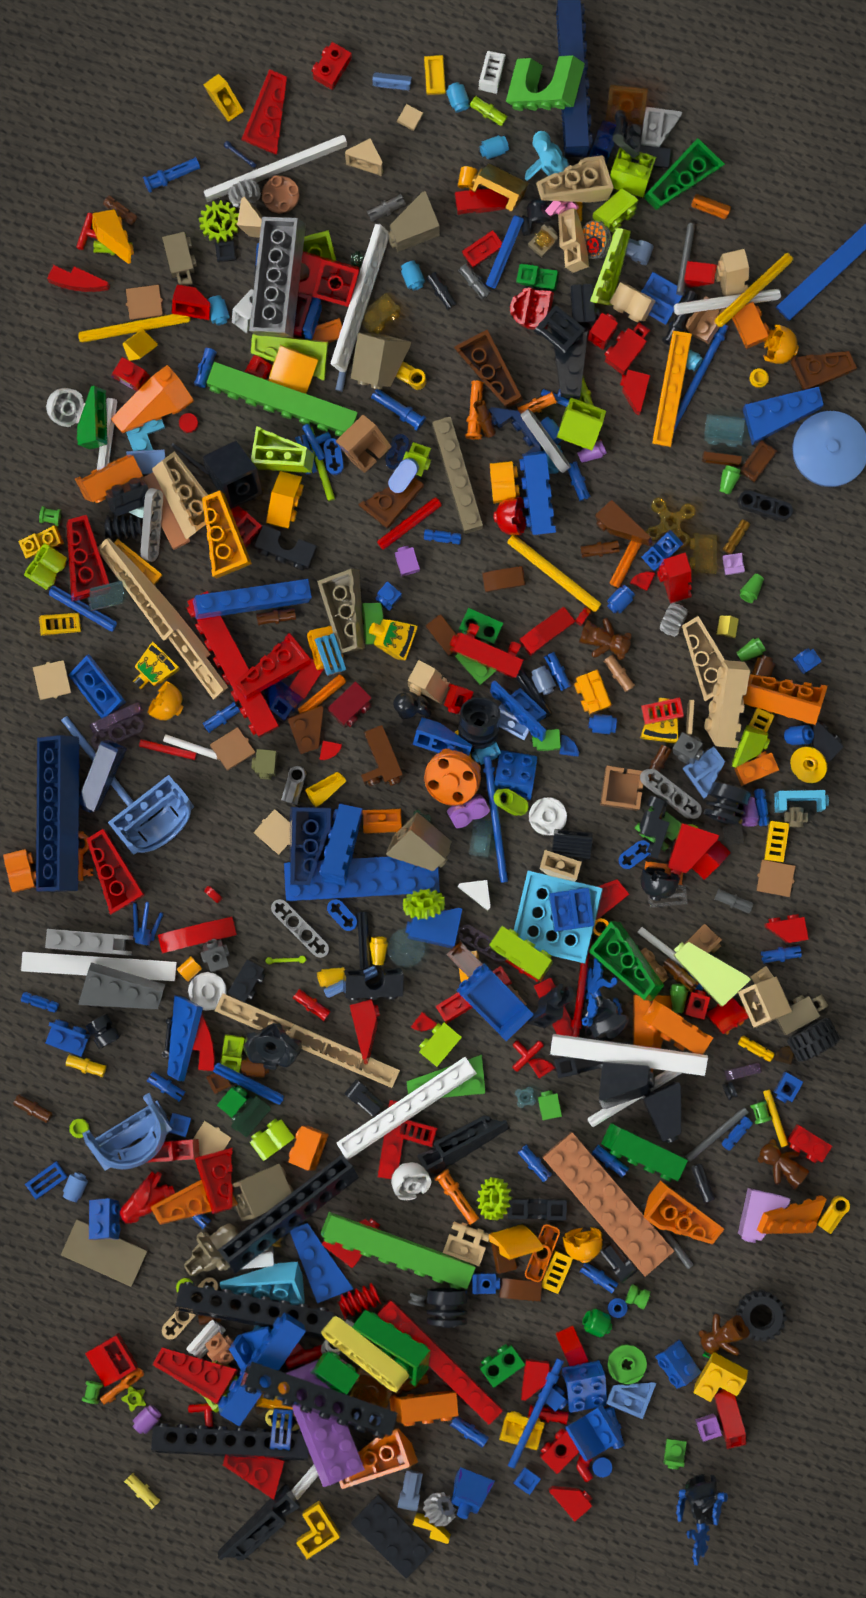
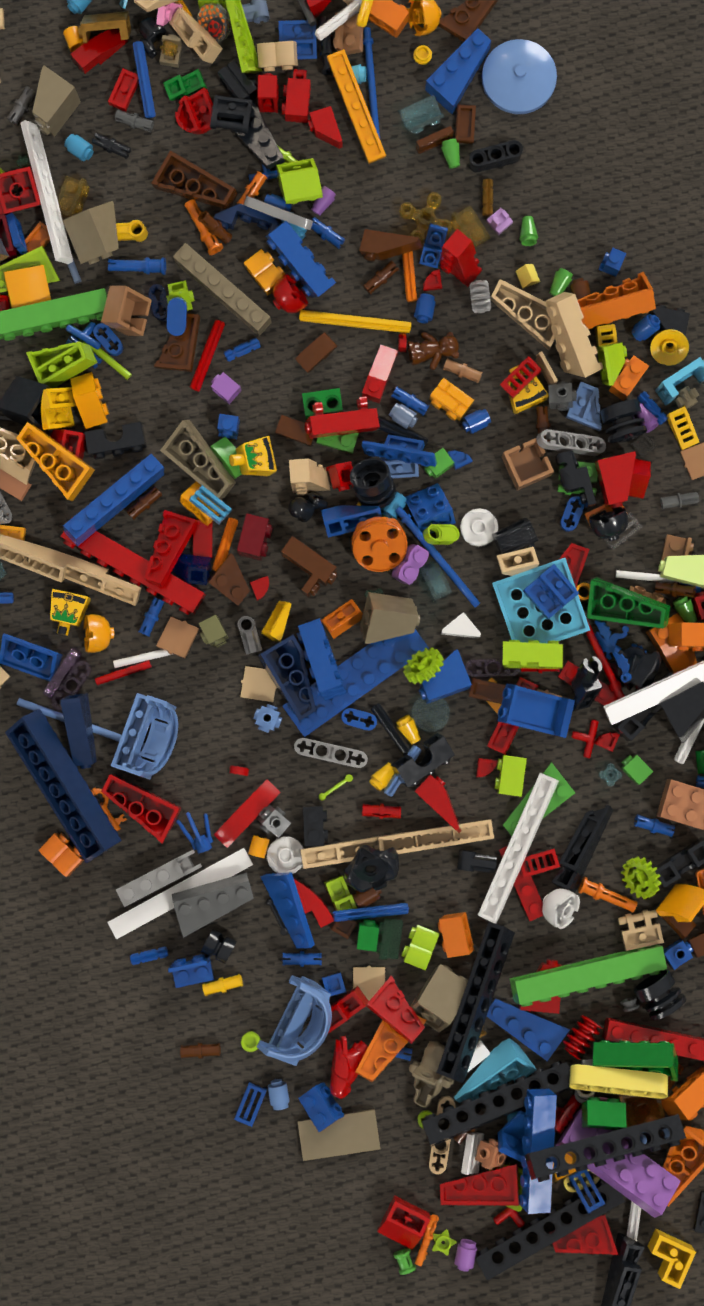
camera: 30 degrees left, 0 degrees up
(252, 491) = (56, 408): none -> yellow slope
(272, 862) = (275, 718): none -> medium blue brick

